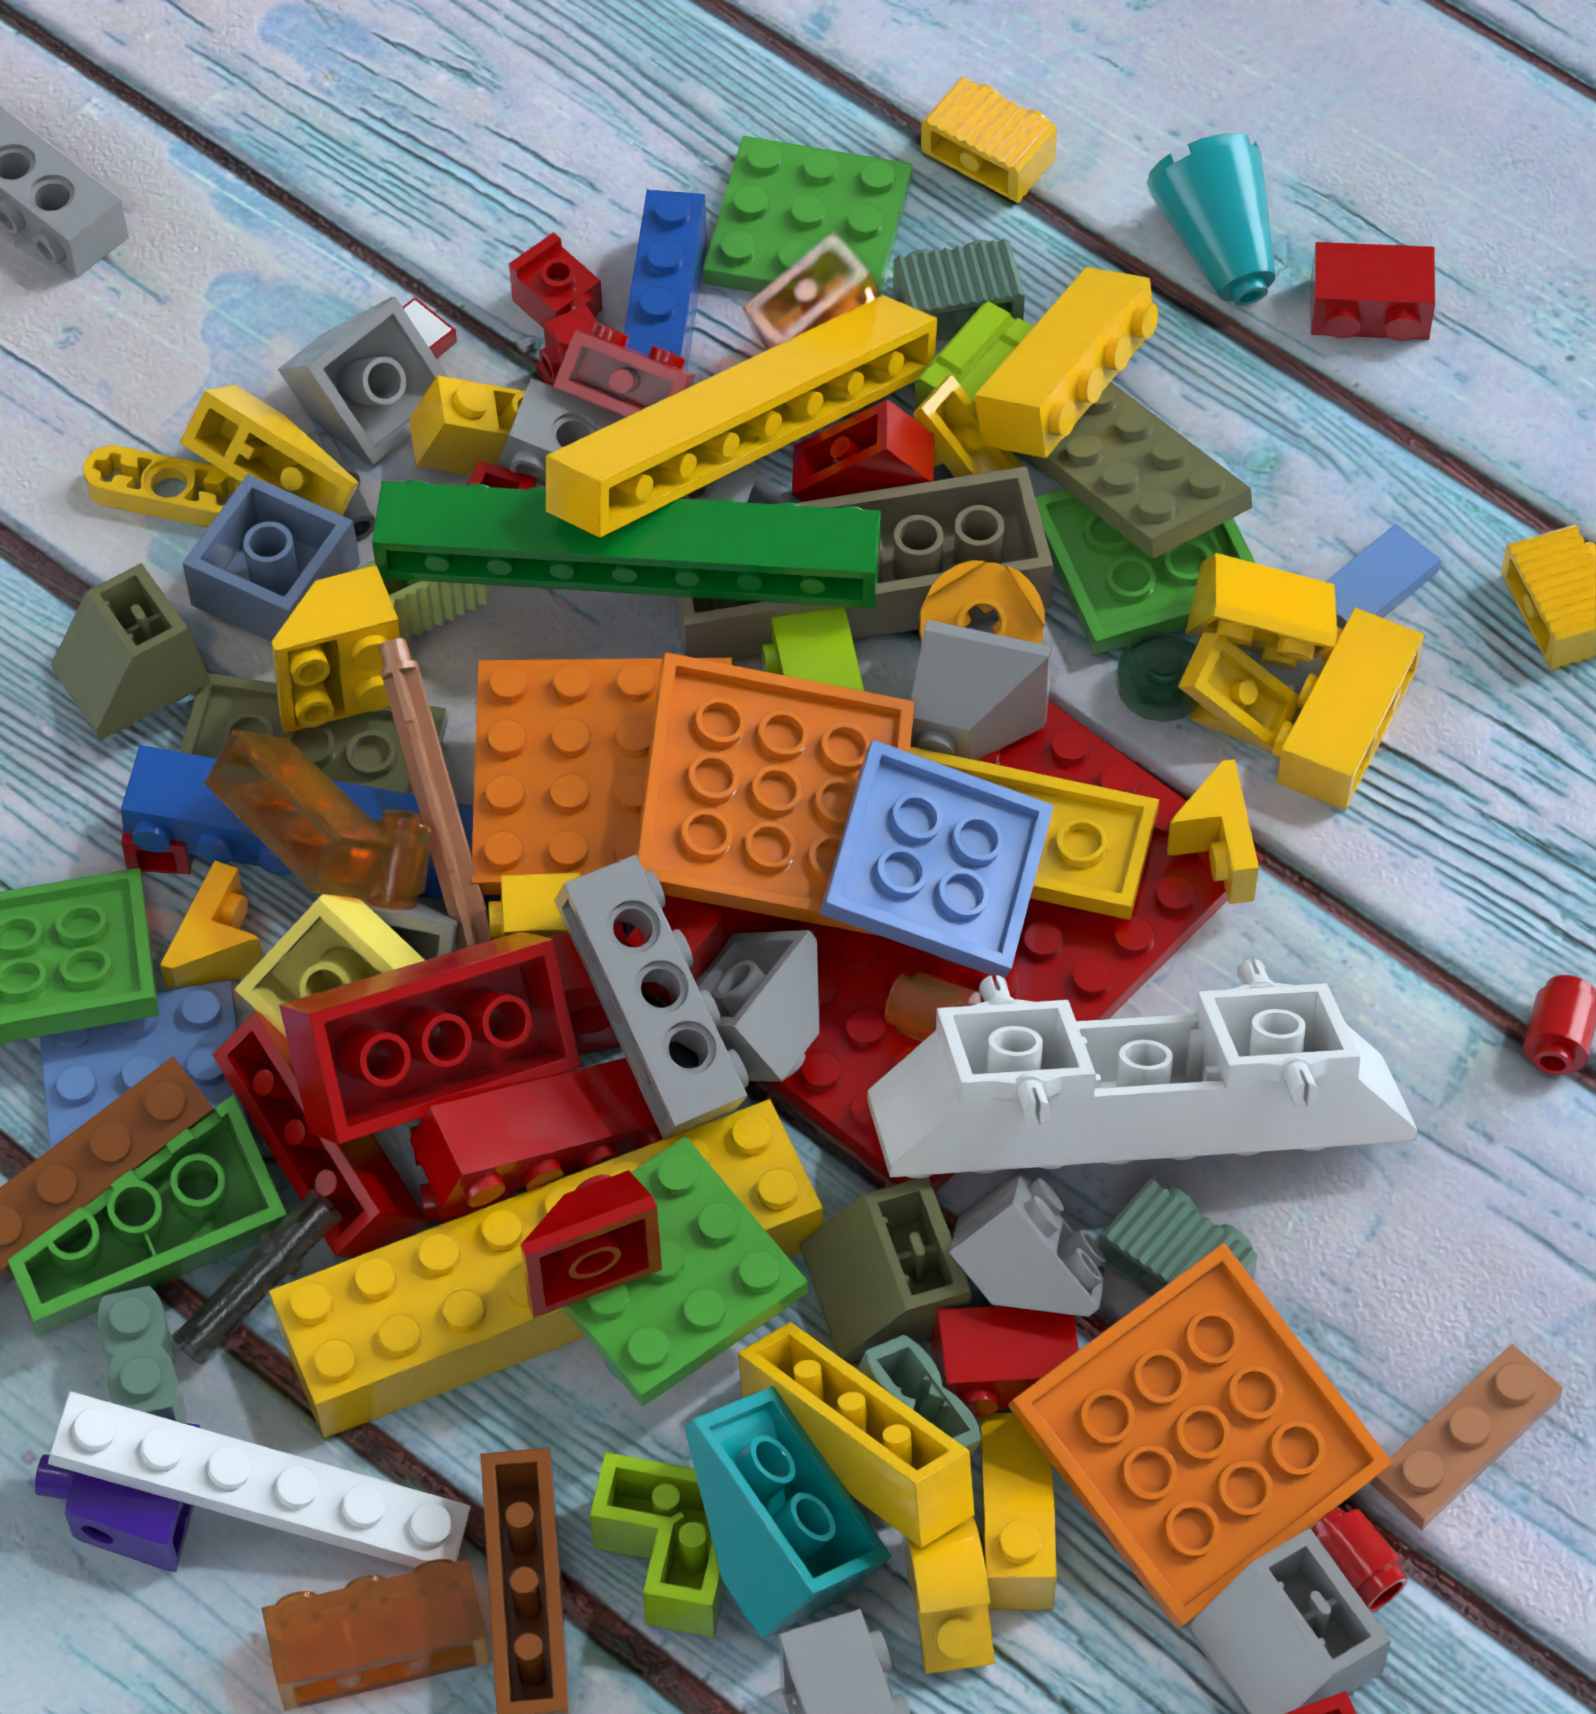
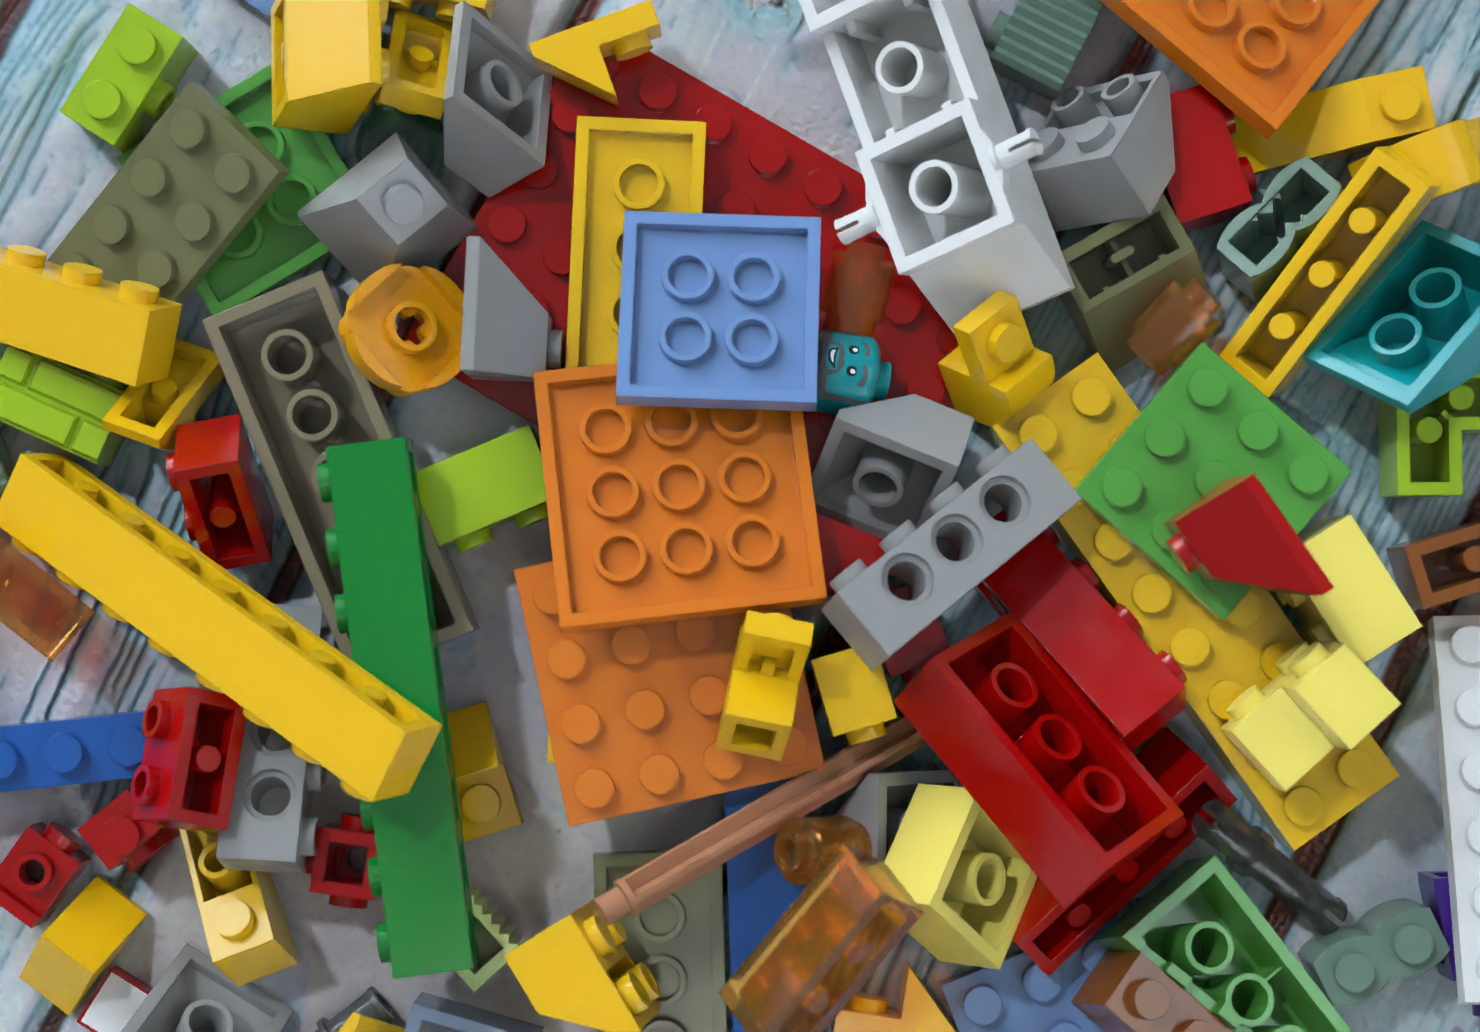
camera: 105 degrees left, 30 degrees up
(410, 1291) = (1309, 708): none -> light yellow brick
(486, 315) = (82, 944): none -> yellow slope
(521, 1387) = (1365, 602): none -> light yellow brick
(565, 818) = (764, 684): none -> yellow brick
(566, 630) = (481, 774): none -> yellow slope
(836, 1107) = (996, 363): none -> yellow brick
(838, 1282) = (1174, 325): none -> clear orange brick
(856, 976) = (849, 371): none -> teal head
(1099, 645) = (387, 213): none -> light grey slope
(1184, 725) = (492, 105): none -> light grey slope
(1286, 474) = (130, 80): none -> lime brick

